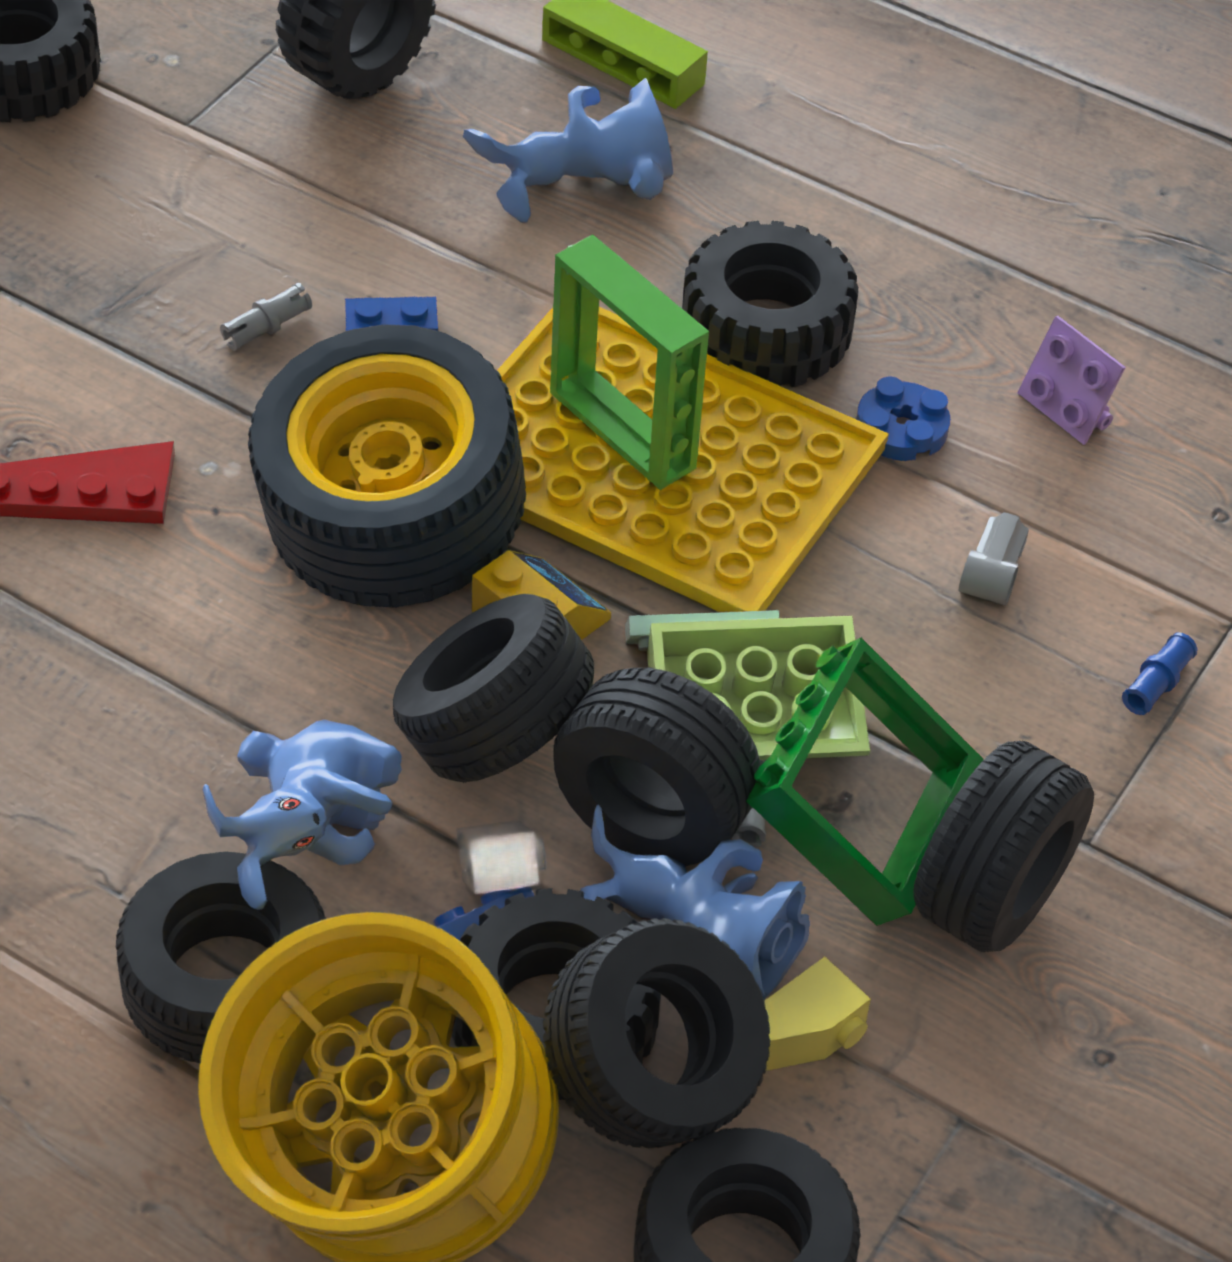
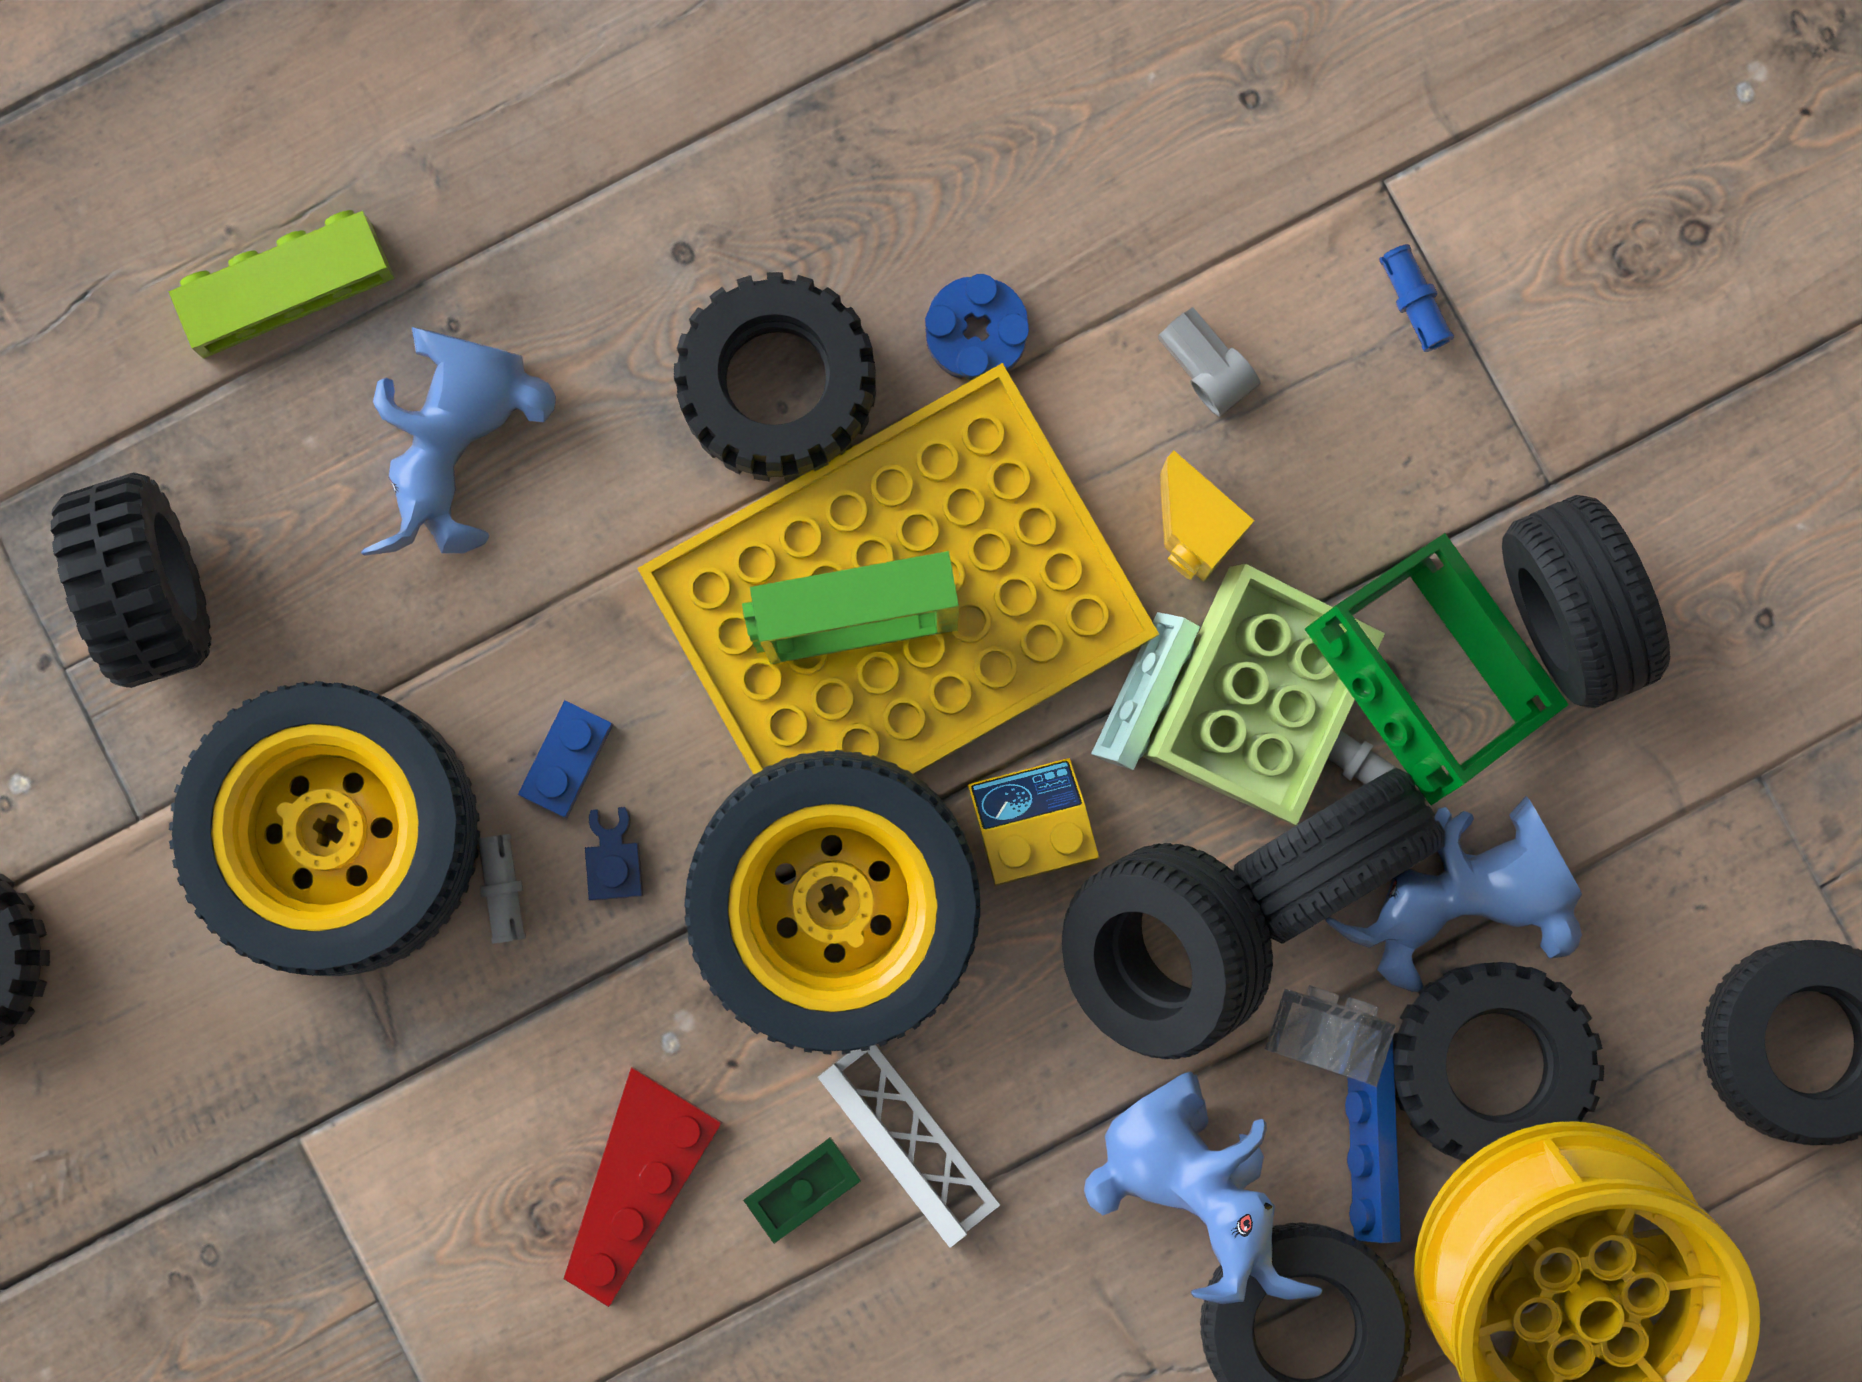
camera: 55 degrees left, 35 degrees up
(137, 581) = (802, 1190): none -> dark green plate
(203, 623) = (895, 1157): none -> white fence
(244, 182) = (243, 786): none -> wheel
(722, 1023) = (1689, 1018): black tyre -> none
(815, 1016) = (1616, 864): light yellow slope -> none
(862, 579) = (1197, 519): none -> yellow slope
(1072, 381) = (1040, 144): lavender hinge -> none

